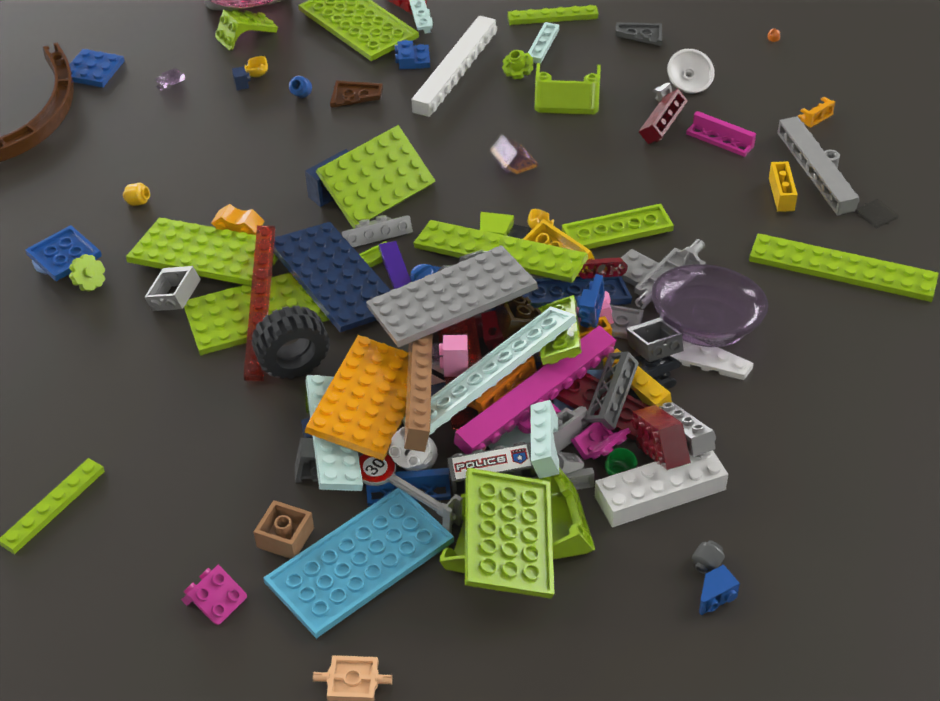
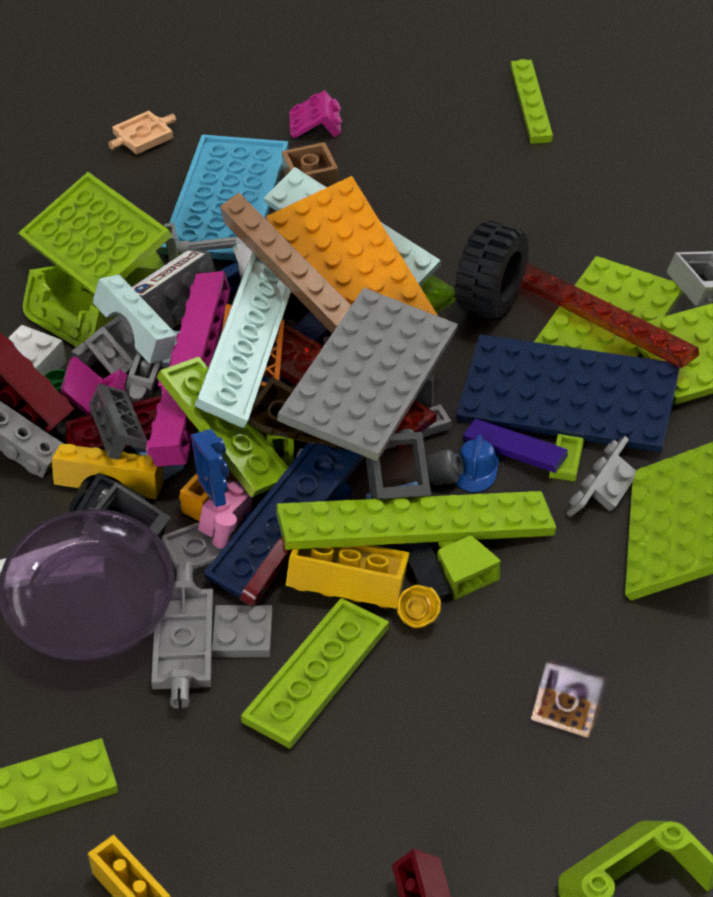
camera: 140 degrees right, 0 degrees up
(454, 355) = (300, 329): bright pink brick -> none

